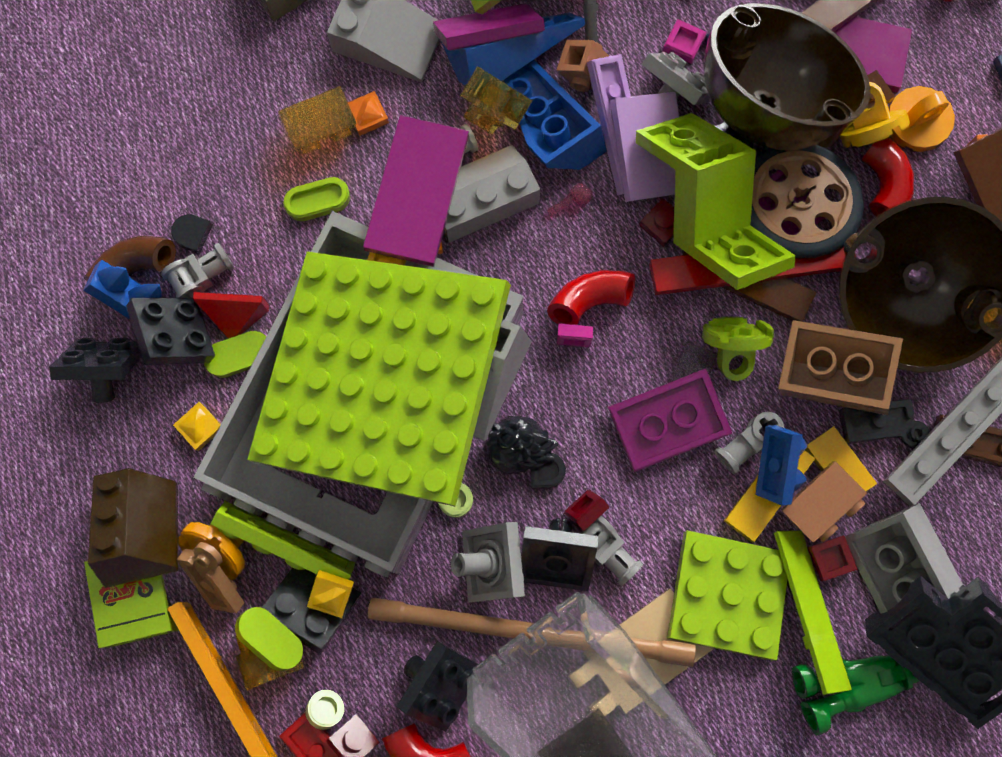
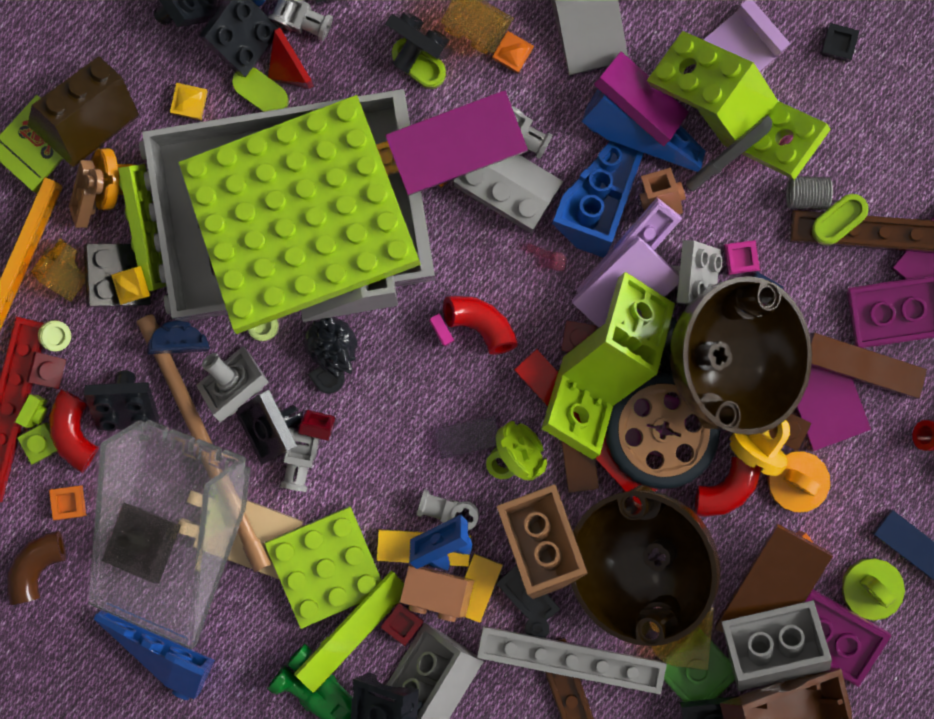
camera: 50 degrees right, 10 degrees up
(268, 639) = (71, 264): lime tile -> none
(296, 179) = (417, 40): none -> black plate
(411, 588) = (177, 338): none -> dark blue tile
(493, 102) = (581, 146): clear yellow brick -> none
(670, 420) = (424, 442): magenta tile -> none

